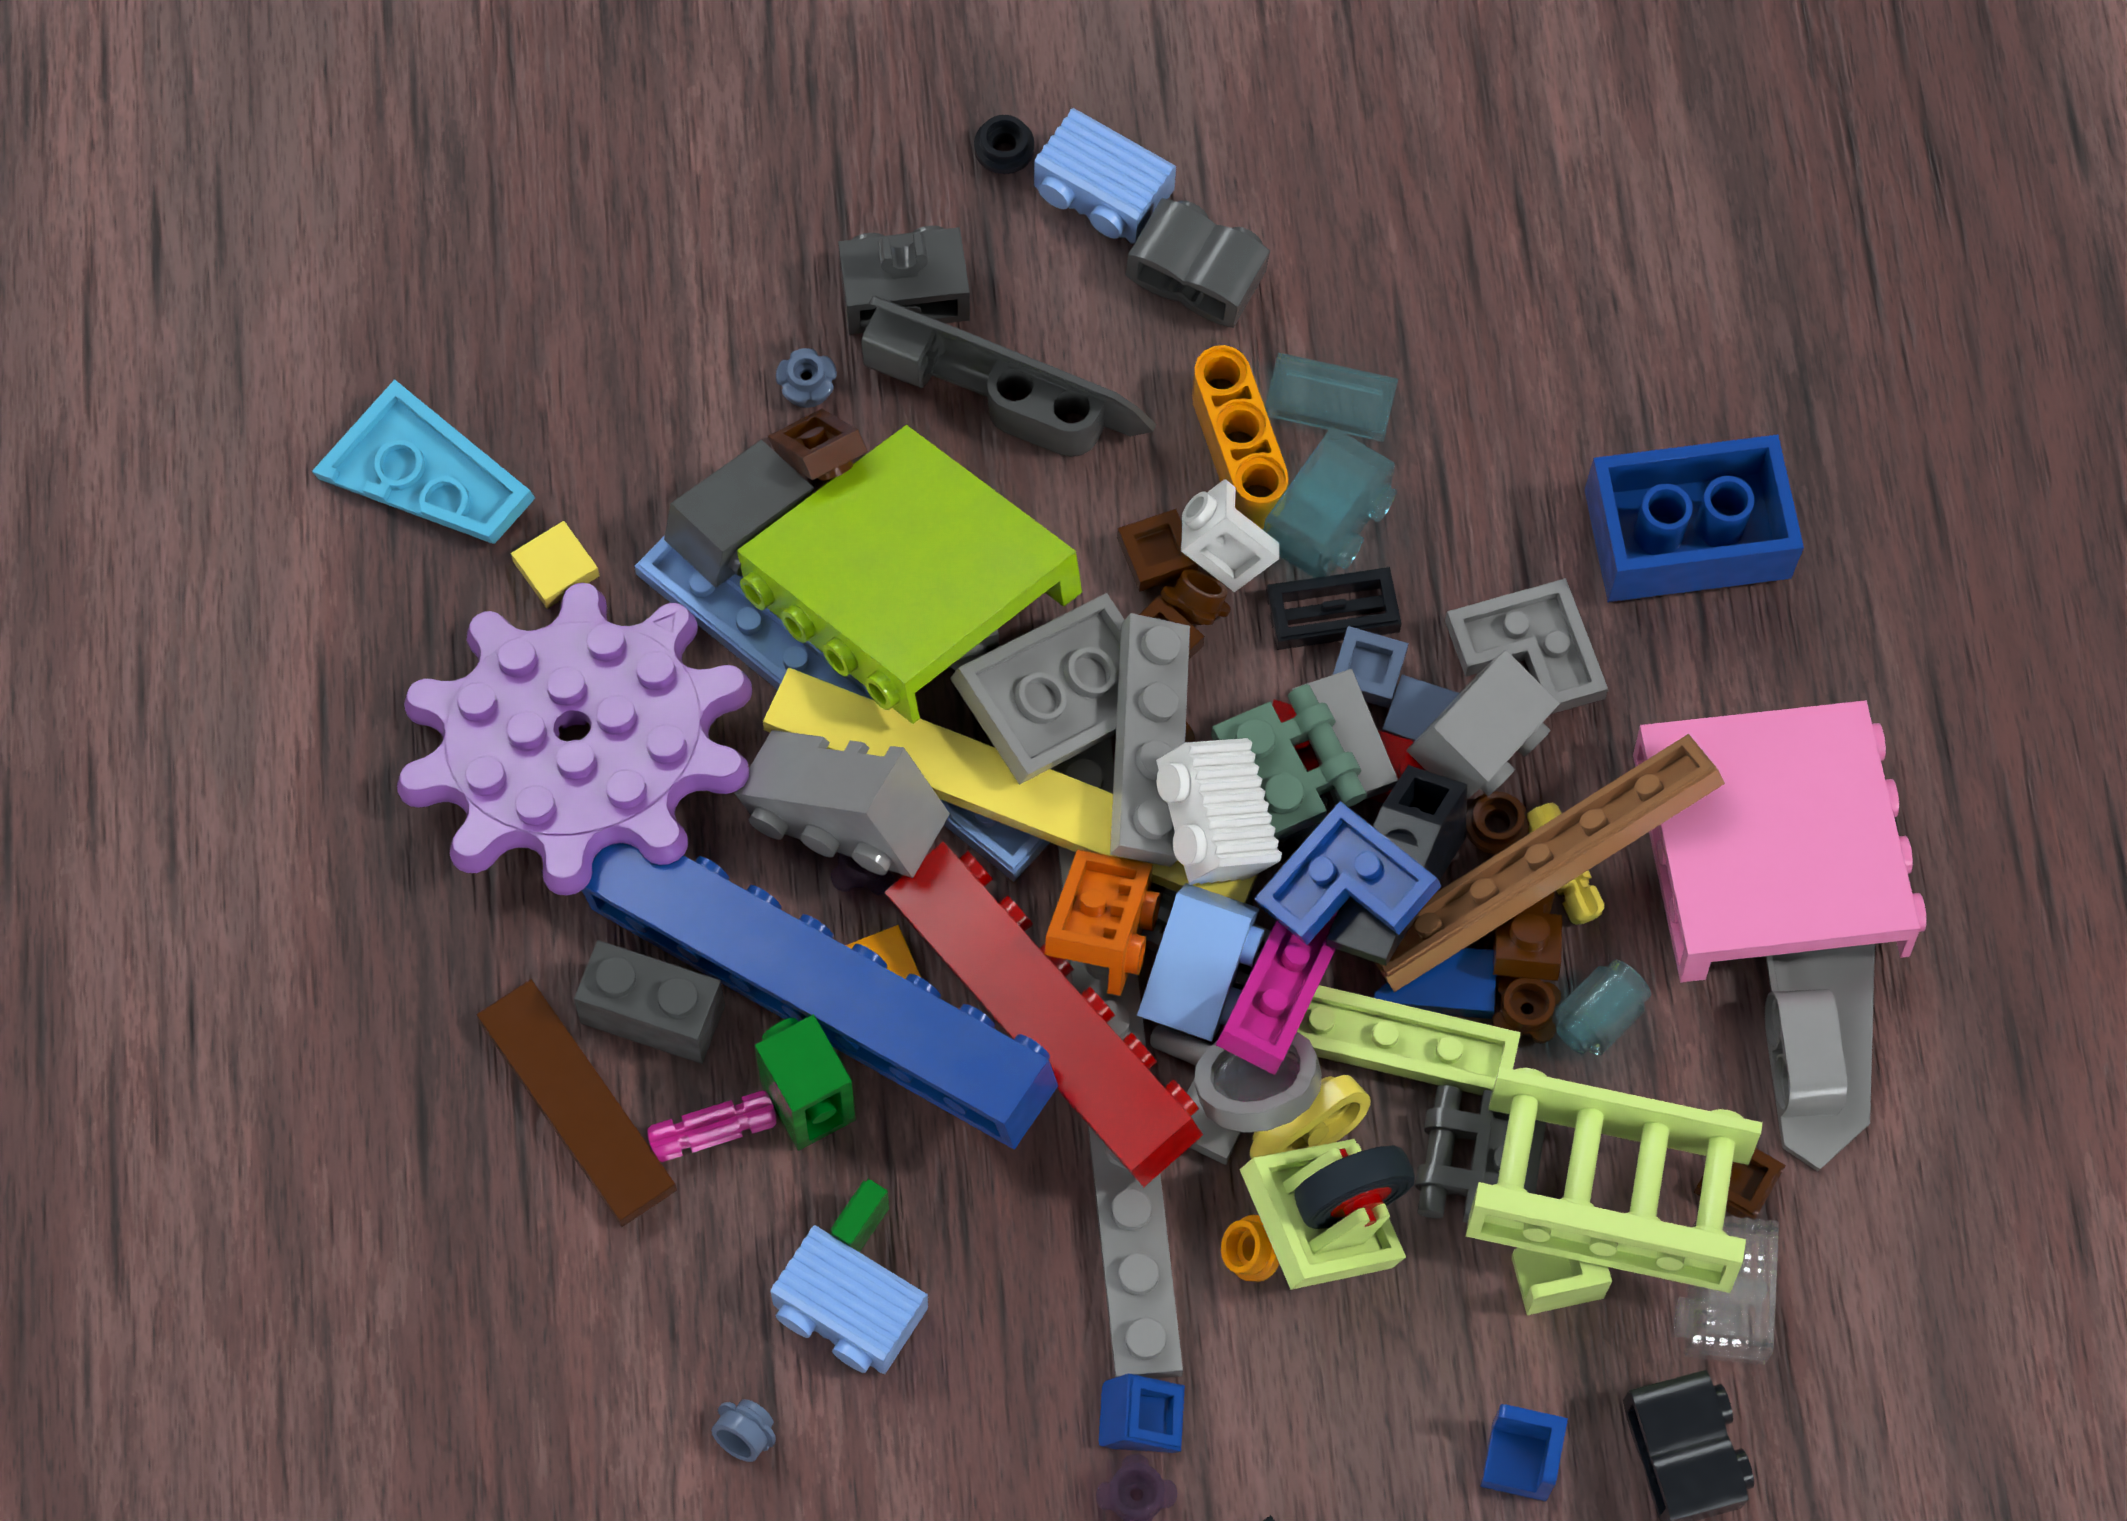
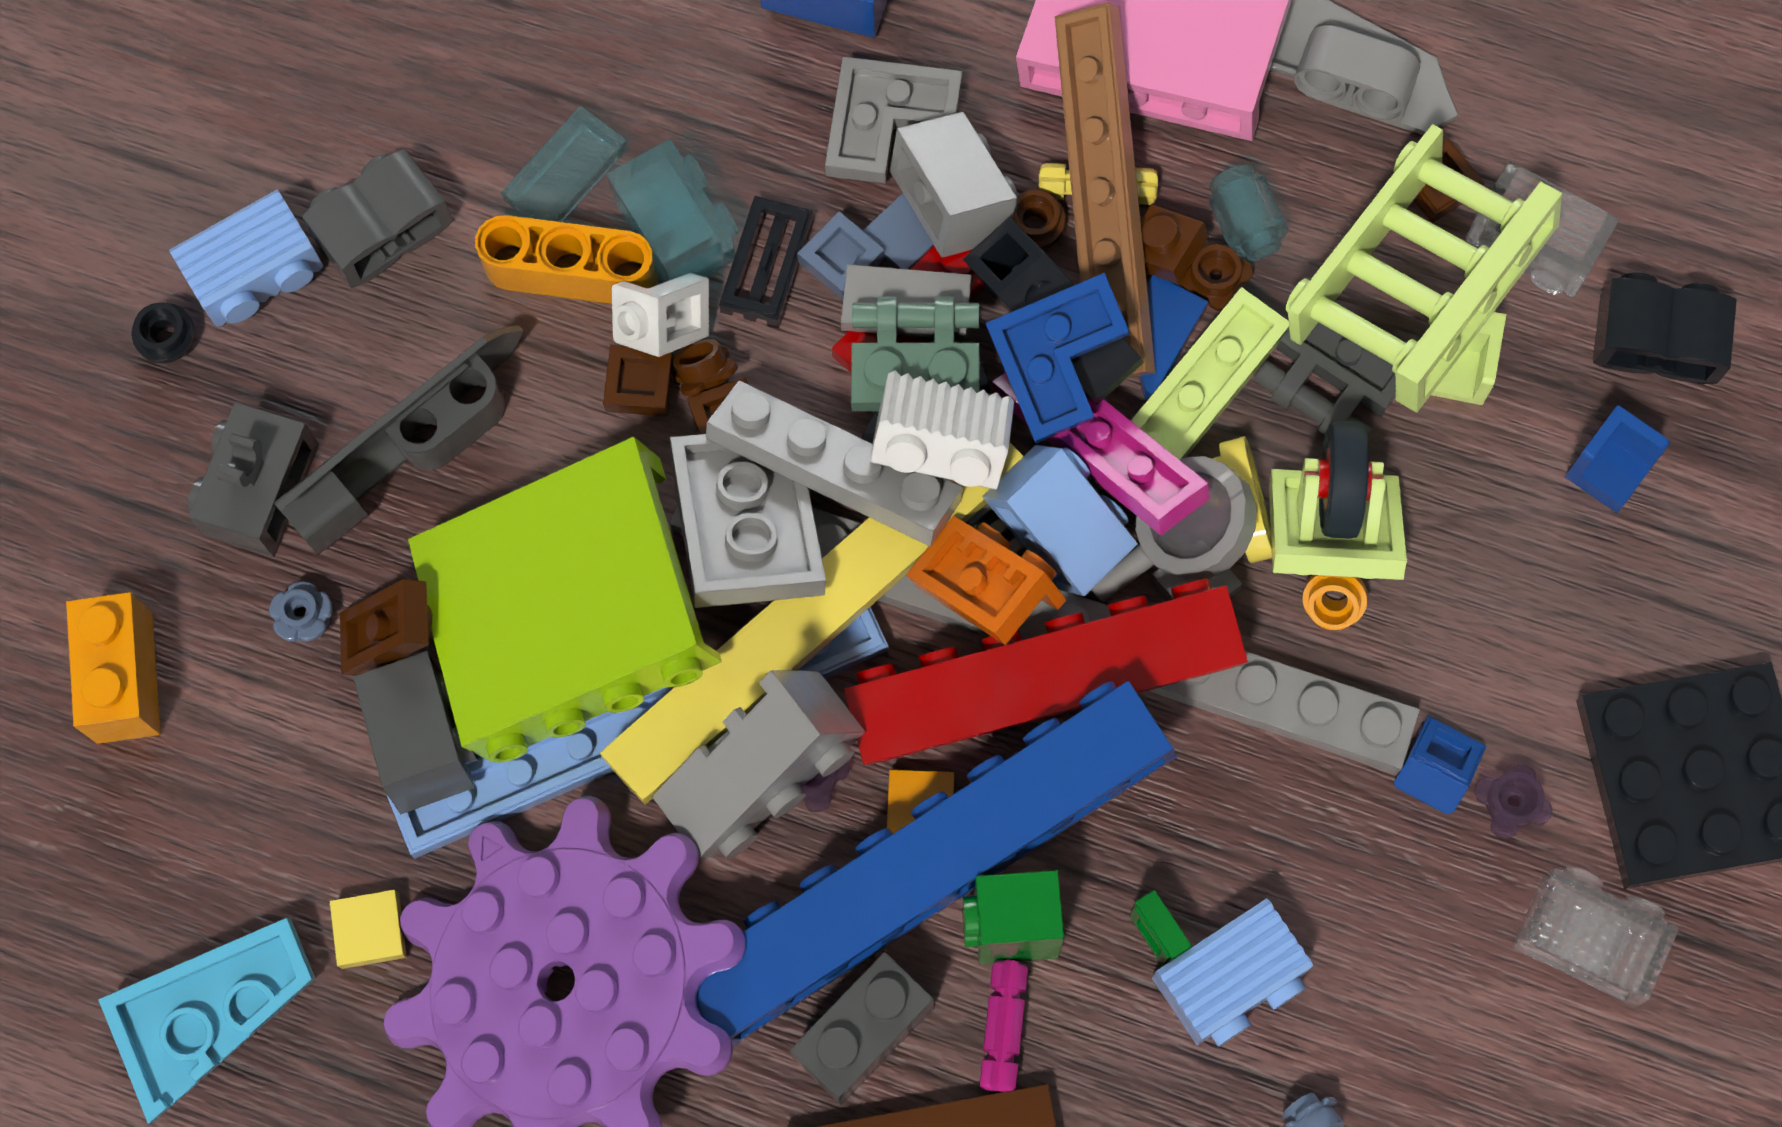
camera: 60 degrees left, 5 degrees up
(681, 252) = (113, 668): none -> light orange brick

